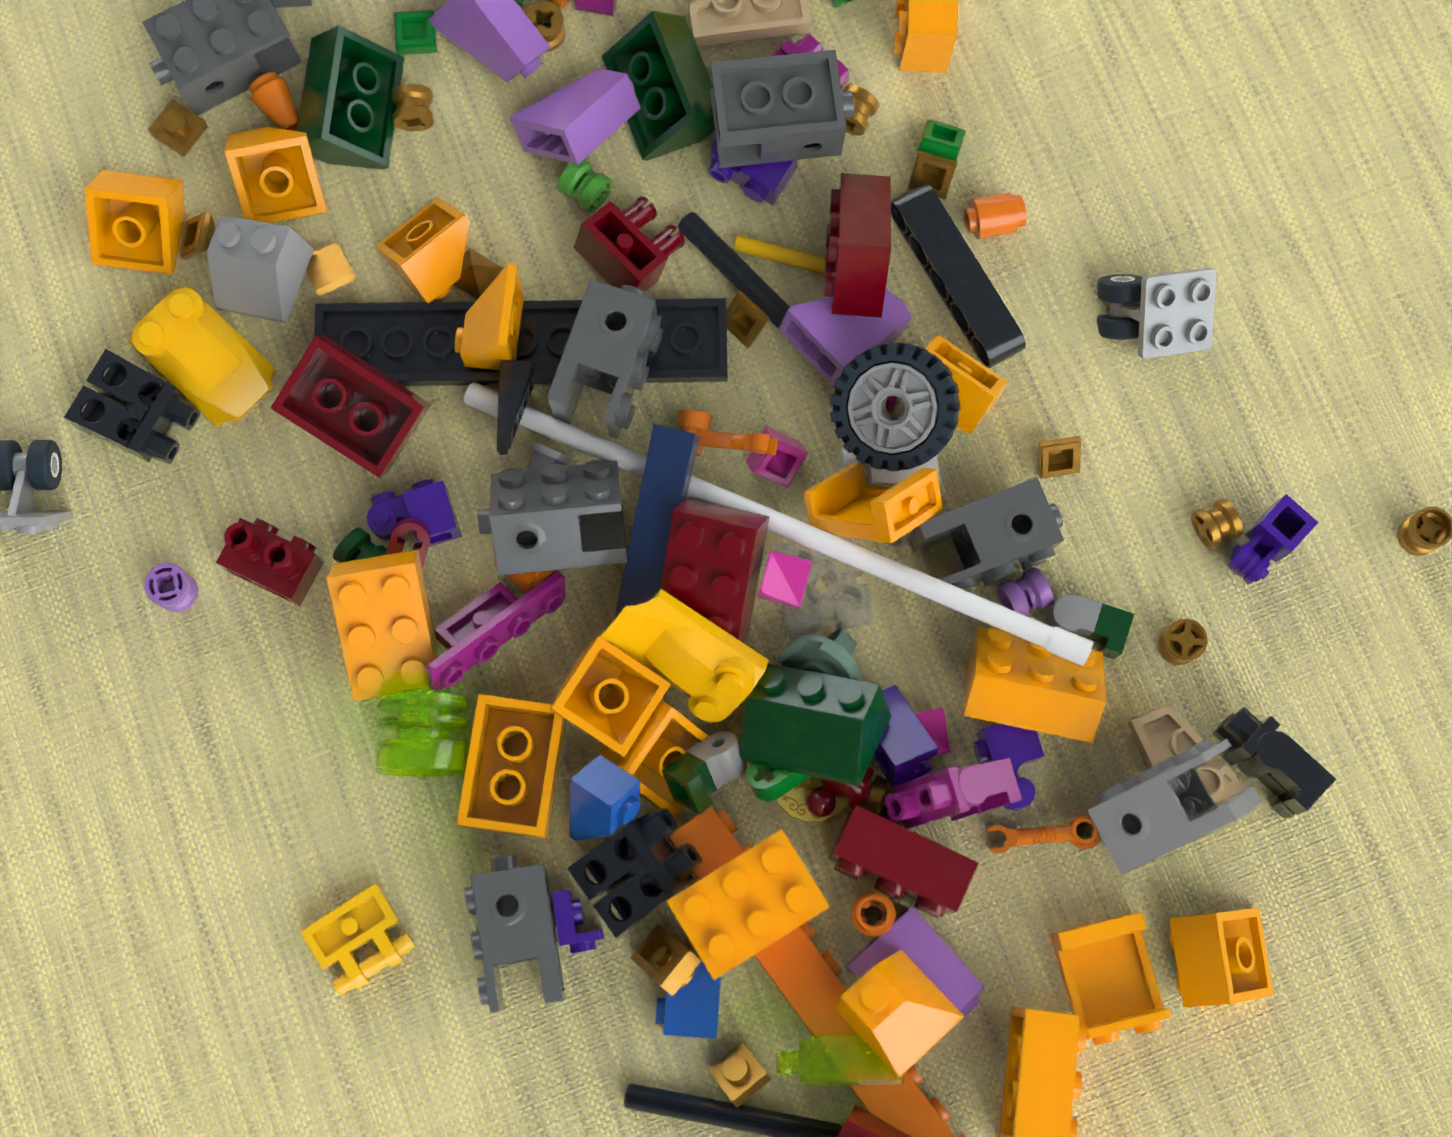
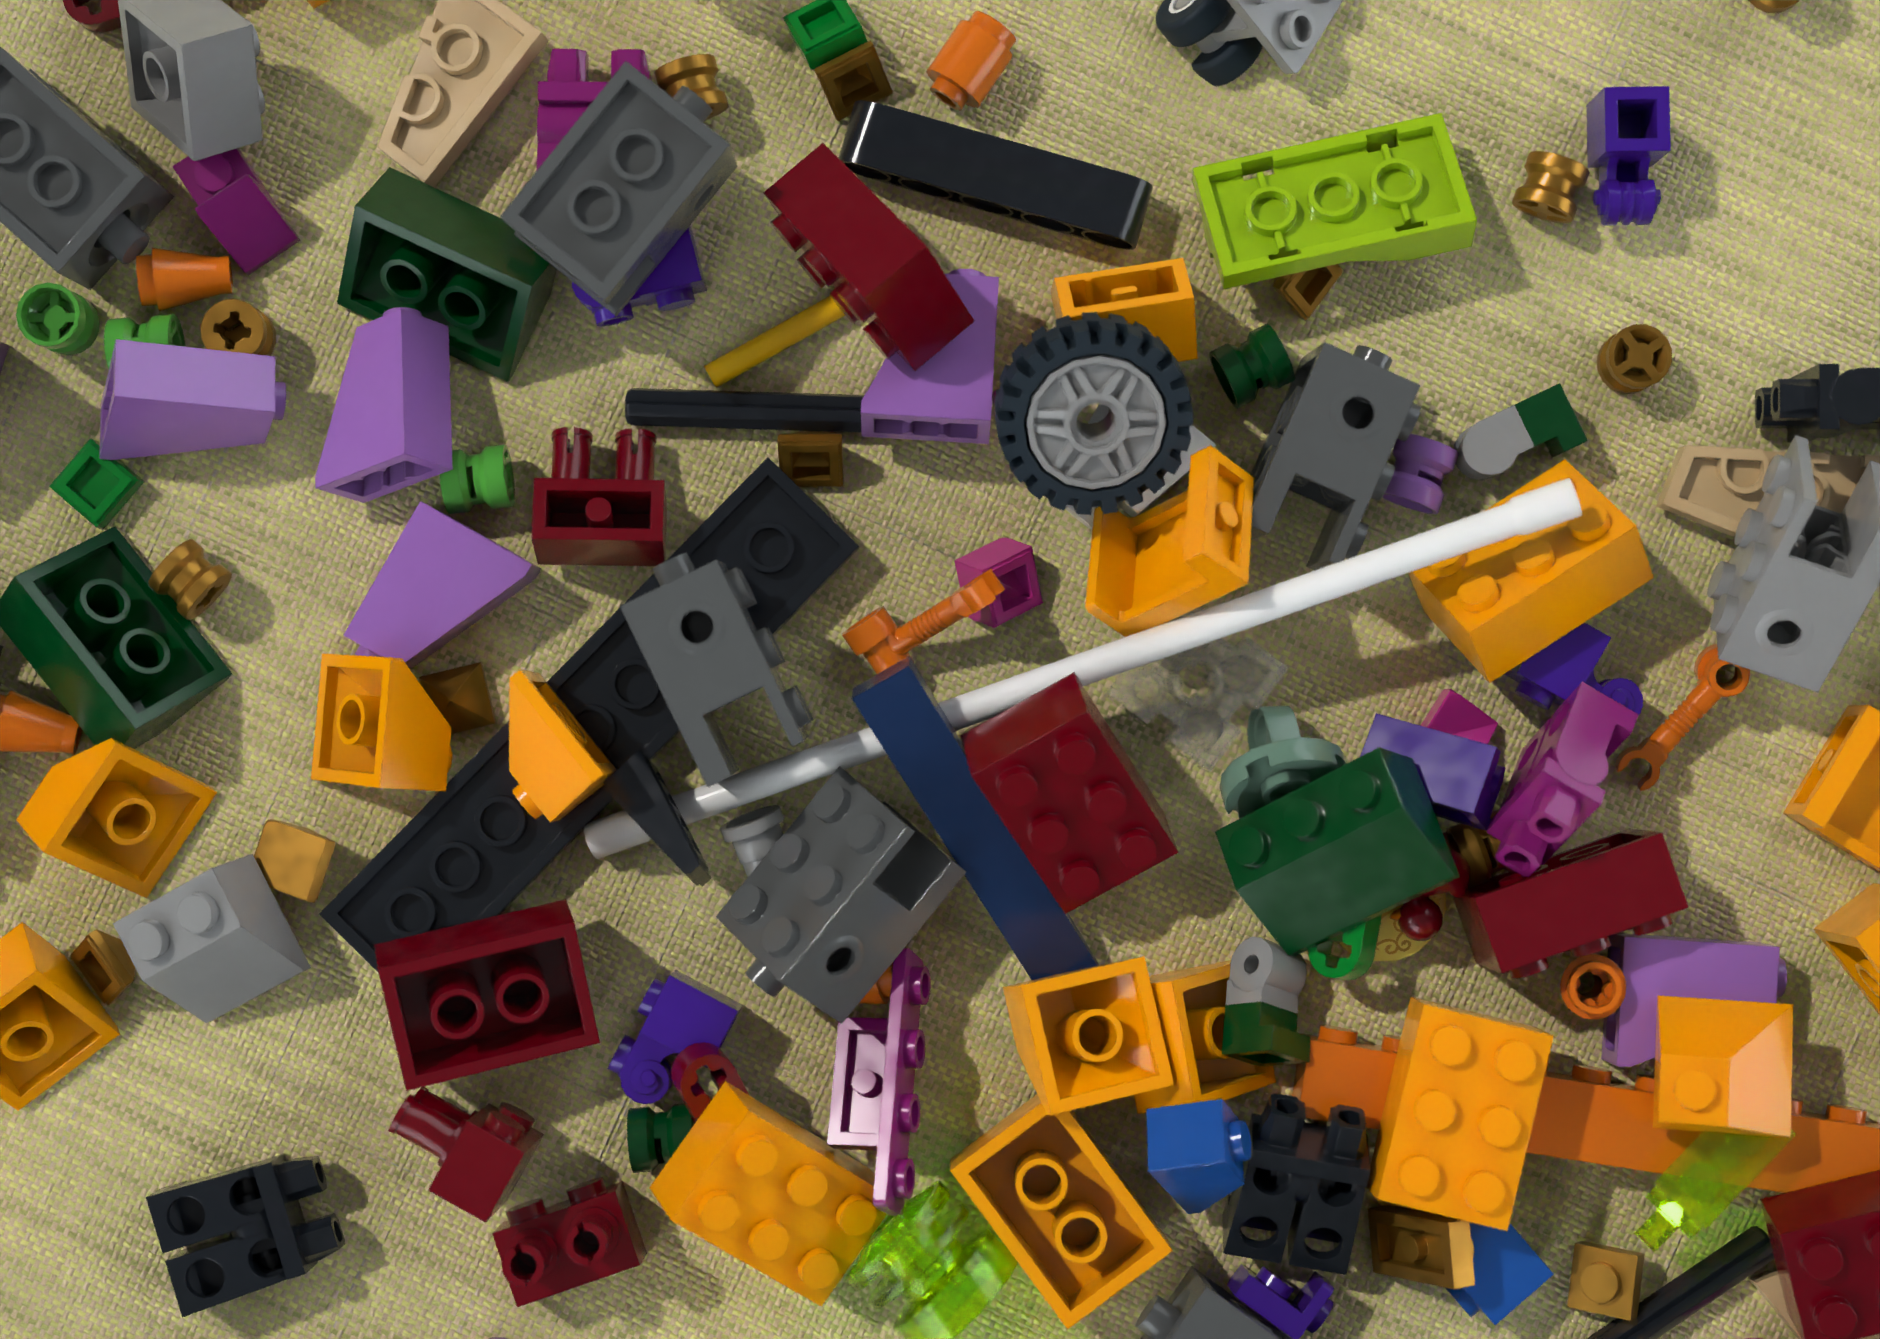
camera: 35 degrees left, 10 degrees up
(203, 356) = (258, 1091): yellow slope -> none
(269, 476) = (477, 1152): none -> dark red brick
(517, 213) = (434, 588): none -> medium lavender slope
(688, 654) = (1136, 902): yellow slope -> none
(785, 579) = (1159, 726): dark pink slope -> none
(993, 470) = (1252, 366): none -> dark green wheel
(1111, 433) = (1336, 201): none -> lime piece

